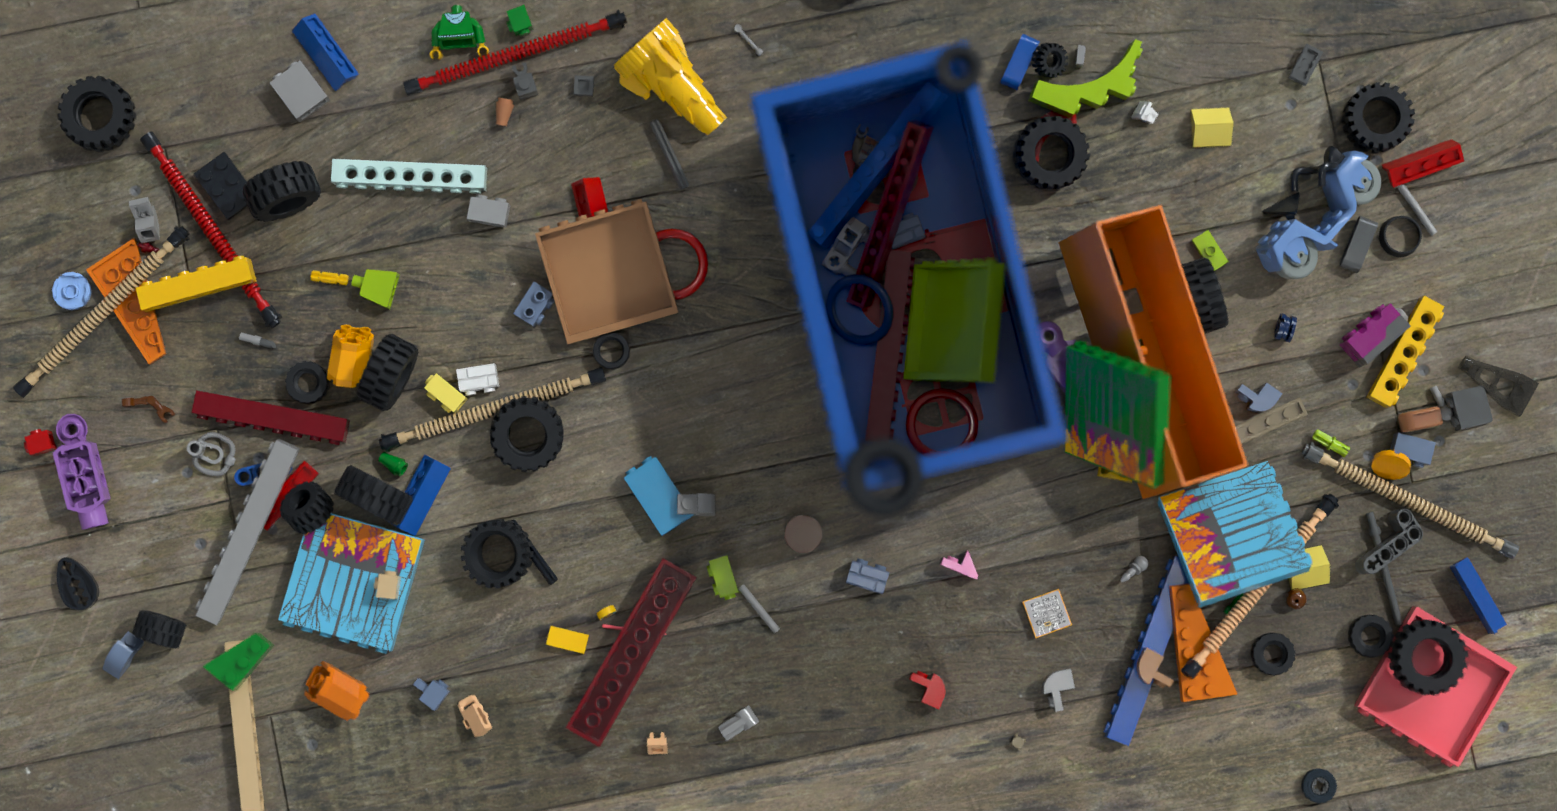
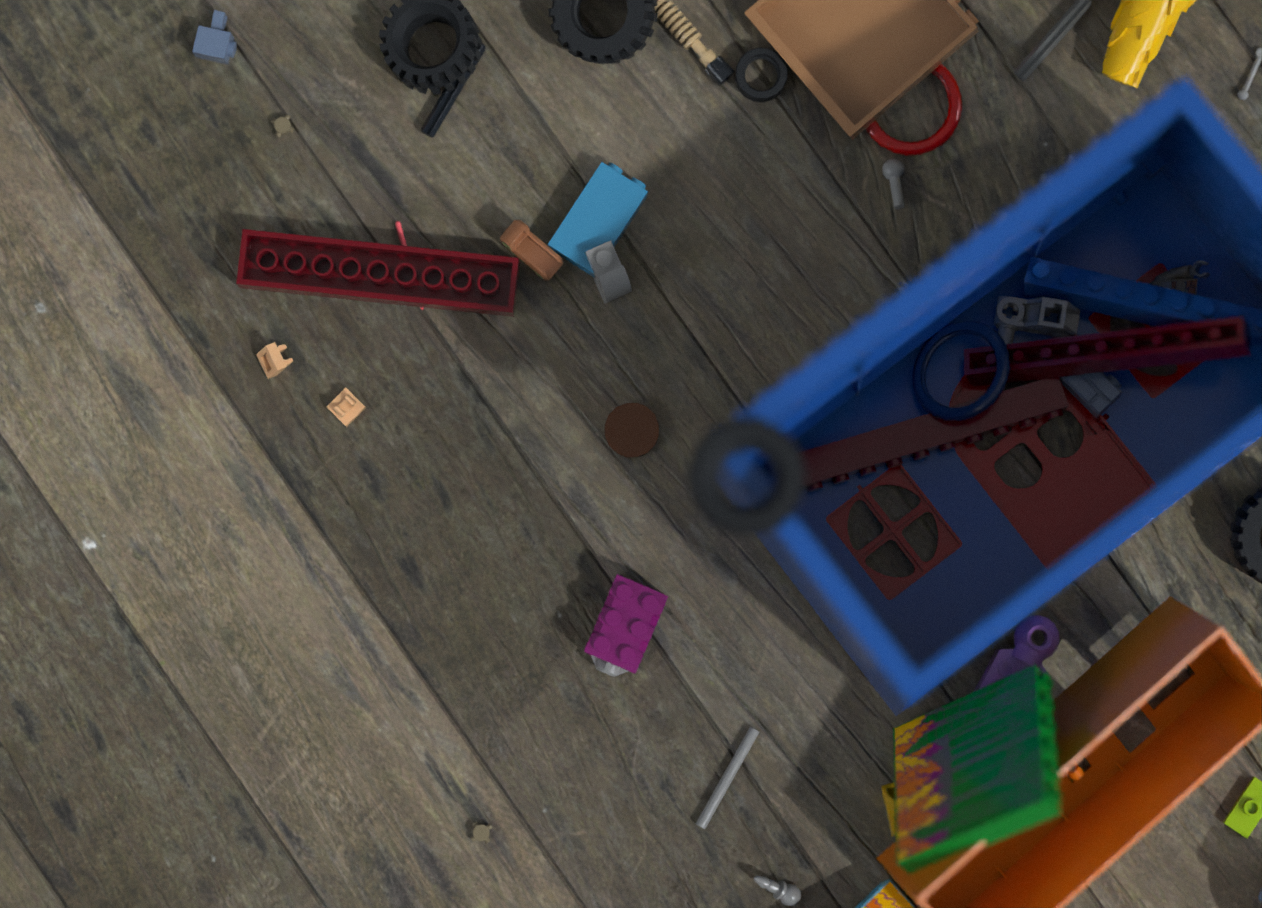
camera: 65 degrees right, 0 degrees up
(474, 716) = (208, 108): light nougat piece -> none
(507, 672) = (283, 125): none -> dark tan piece
(567, 639) = (359, 183): yellow slope -> none
(606, 612) = (416, 218): yellow tile -> none
(660, 547) = (531, 250): none -> nougat animal
(708, 710) = (346, 407): none -> light nougat tile
(710, 294) = (893, 171): none -> light grey bar
(725, 583) = (529, 350): lime brick -> none
(741, 721) = (351, 456): light grey piece -> none
(759, 609) = (508, 415): light grey bar -> none
(867, 577) = (612, 539): sand blue brick -> none
(927, 593) = (624, 626): none -> magenta piece
(934, 691) = (504, 691): red brick -> none
(940, 393) = (894, 522): red wedge -> none
(954, 321) = (1002, 500): lime panel -> none
(966, 567) = (681, 663): bright pink slope -> none
(1047, 613) = (668, 798): light grey tile -> none
(1050, 570) = (727, 778): none -> light grey bar
(1055, 683) = (582, 849): light grey brick -> none
(1206, 294) = (1189, 824): black tyre -> none

